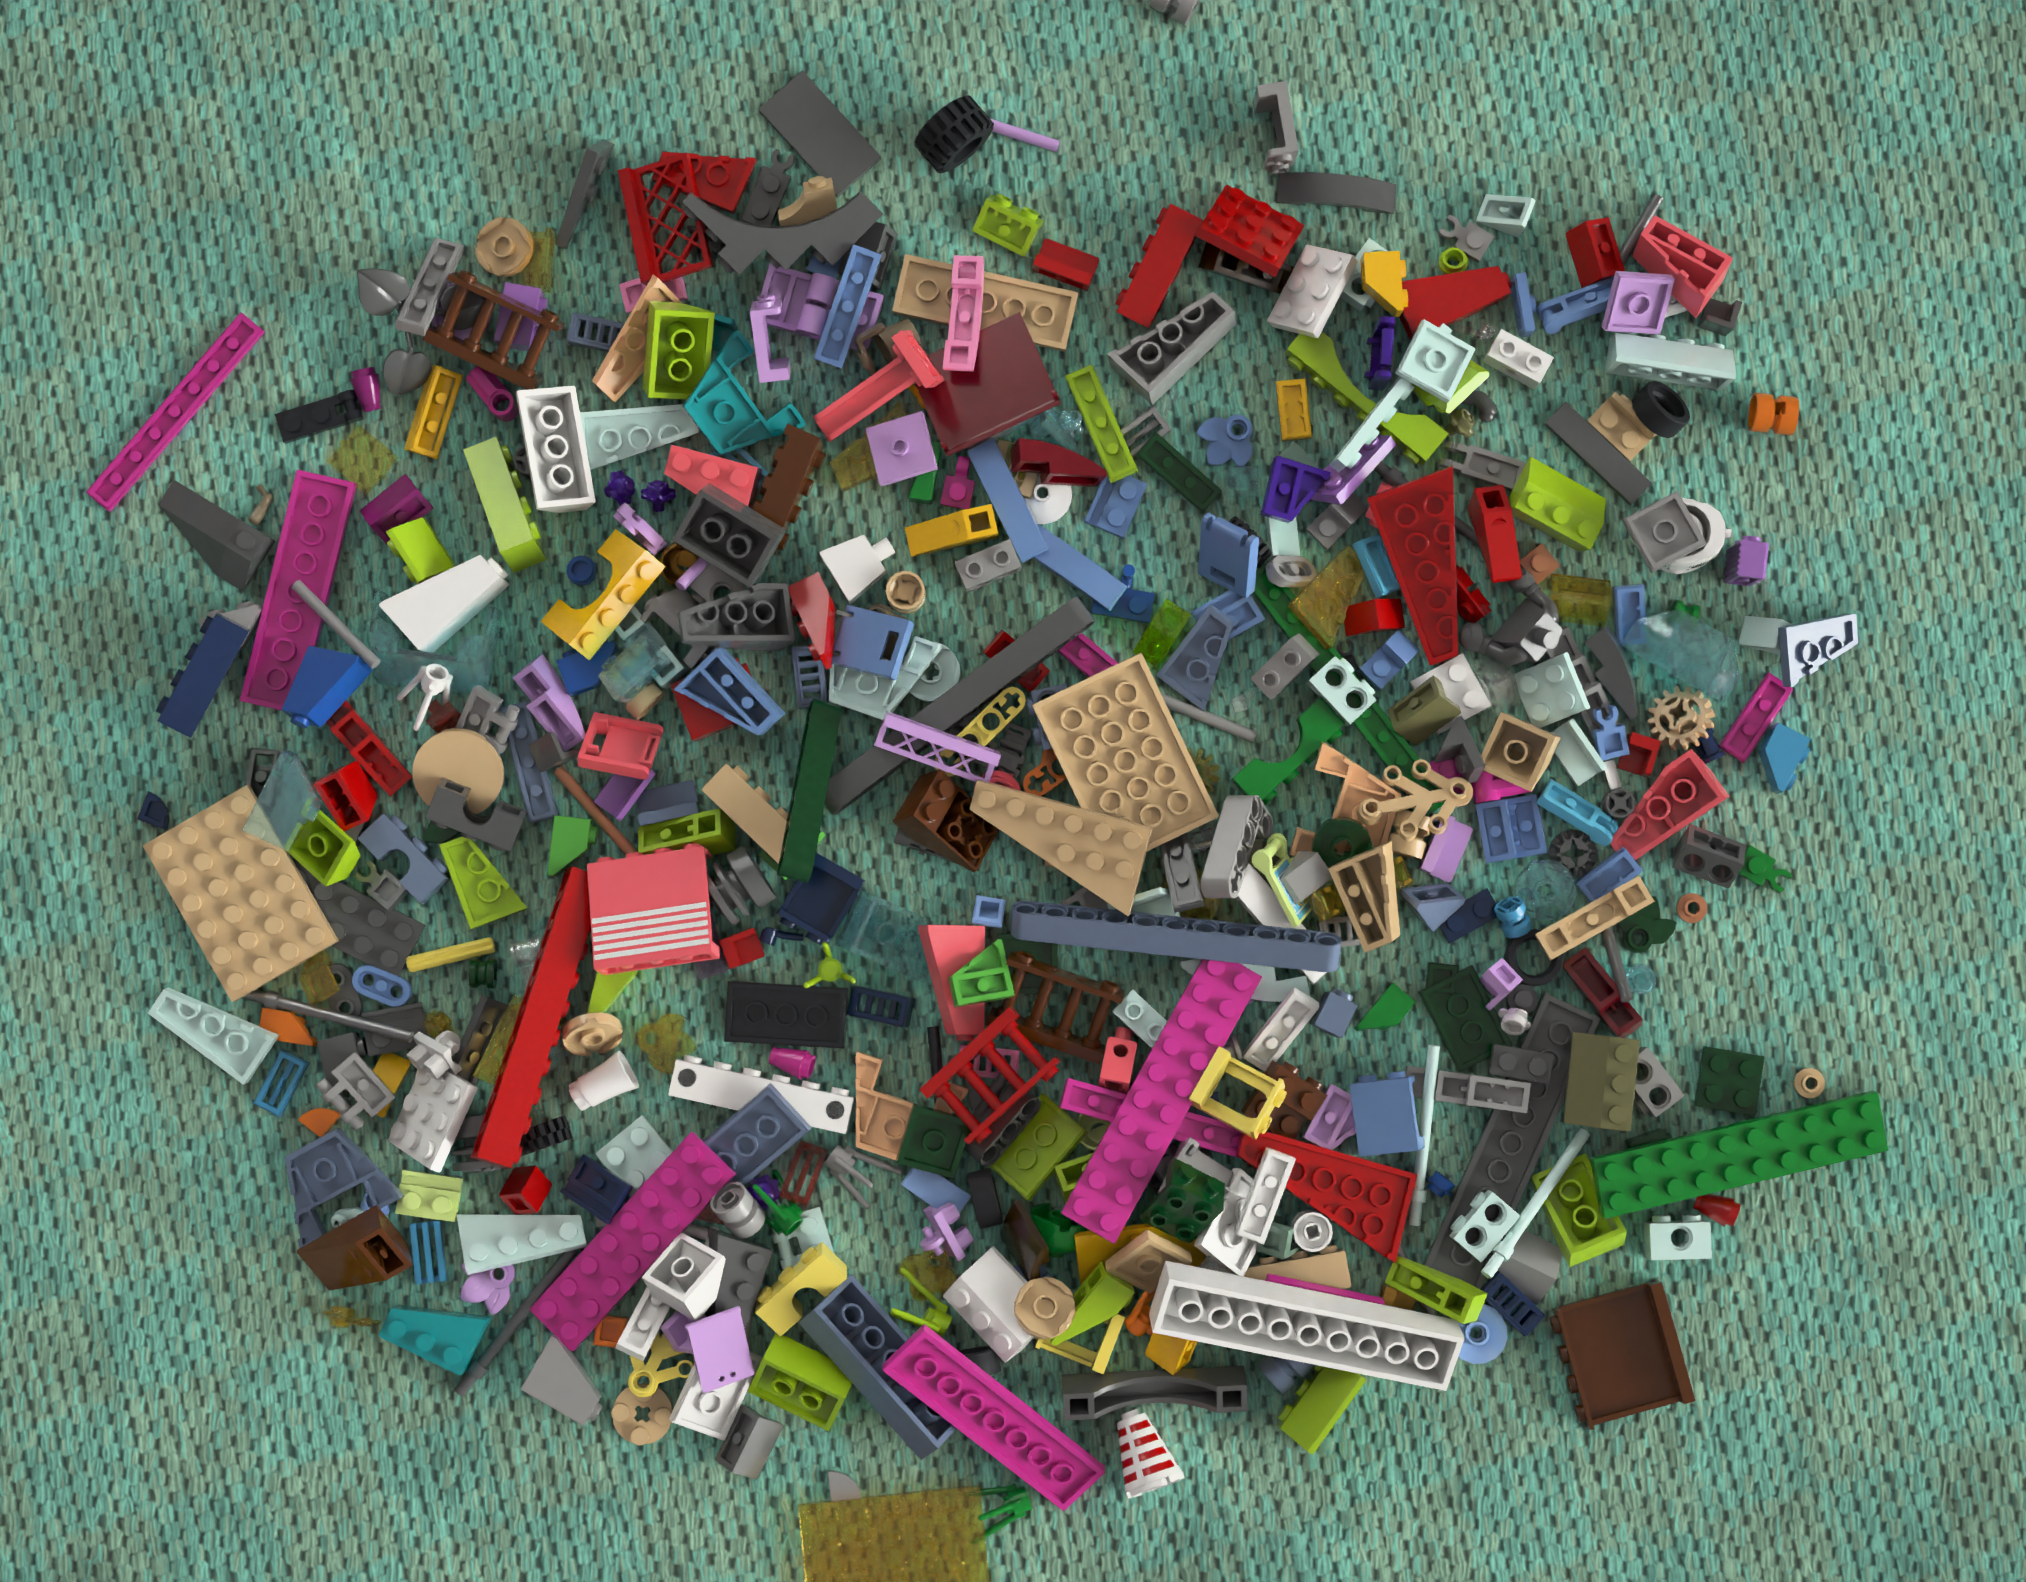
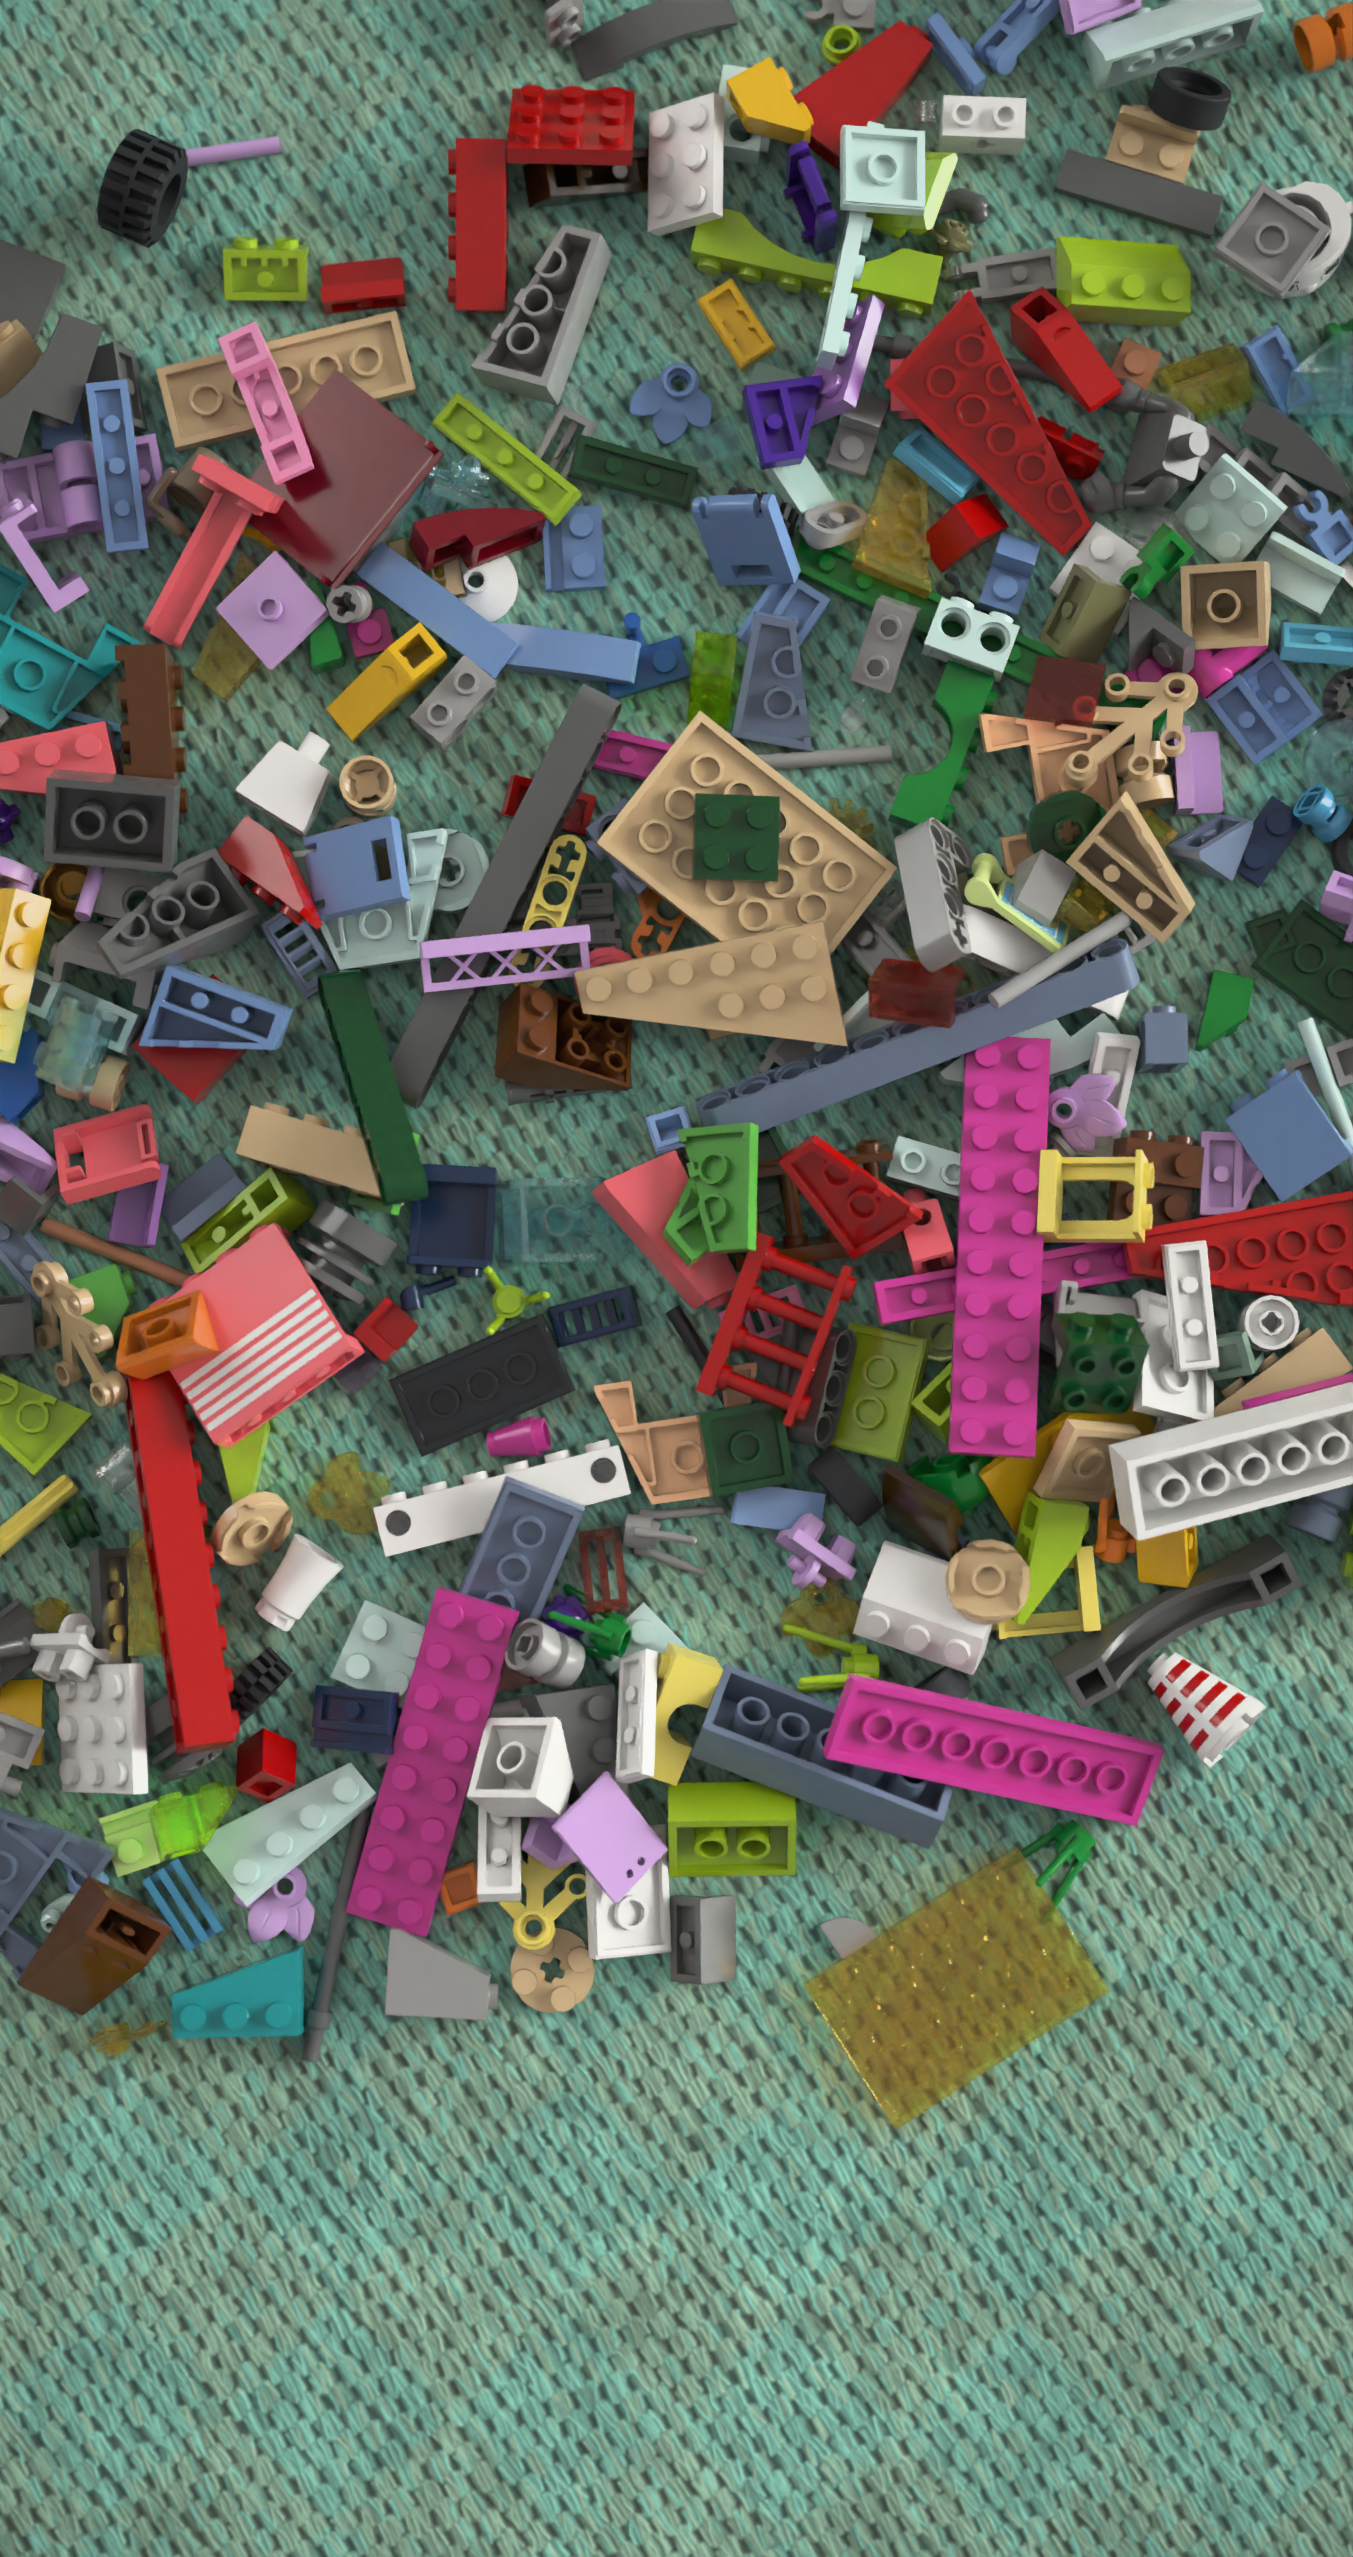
camera: 25 degrees left, 0 degrees up
(457, 1203) = (188, 1823): none -> clear neon green slope
(542, 852) = (76, 1334): none -> tan plant
(597, 884) = (166, 1337): none -> orange slope
(776, 1280) = (636, 1716): none -> white tile
(943, 469) = (359, 597): none -> light grey bush
(1005, 967) = (725, 1174): none -> bright green wing
(1078, 1015) = (847, 1197): none -> red wing
(1123, 746) = (736, 838): none -> dark green plate
(1185, 905) = (913, 994): none -> clear red panel
(1264, 1036) = (1090, 1111): none -> lavender plate
(1292, 930) = (1059, 959): none -> light grey bar
(1385, 755) = (1064, 691): none -> clear red piece
(1490, 699) = (1160, 560): none -> green plate

